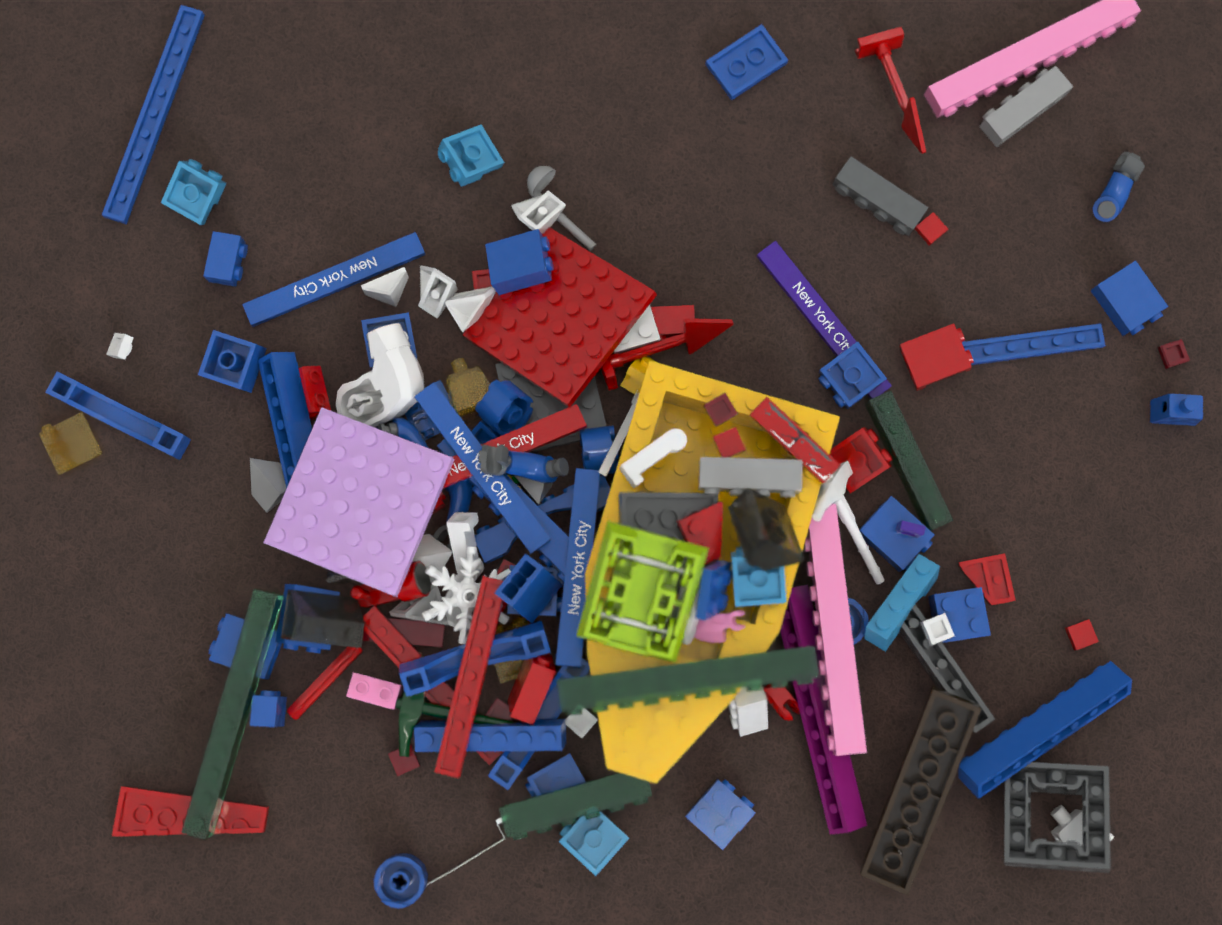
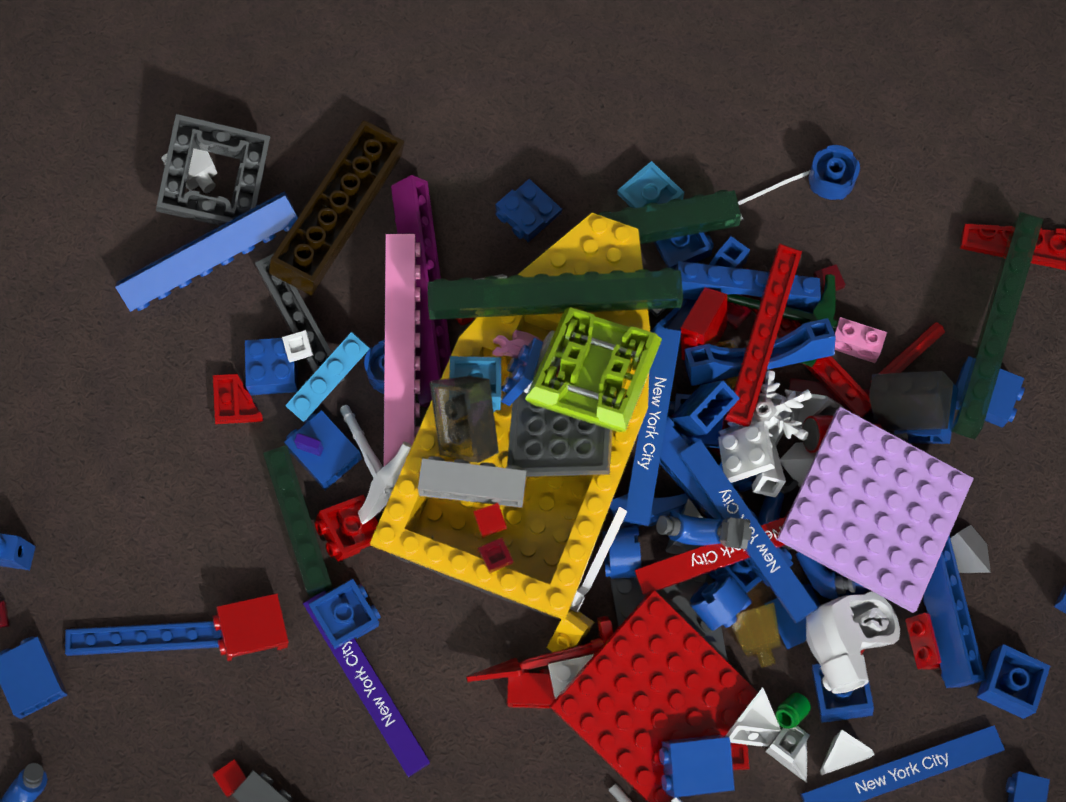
camera: 170 degrees left, 10 degrees down
(268, 709) = (963, 327): blue brick -> none
(434, 320) = (792, 710): none -> green brick
(485, 549) = (746, 452): none -> white plate
(670, 442) = (571, 512): white leg -> none
(705, 529) = (525, 432): red wing -> none
(794, 440) = (421, 517): red tile -> none
(1081, 634) = (152, 342): red tile -> none

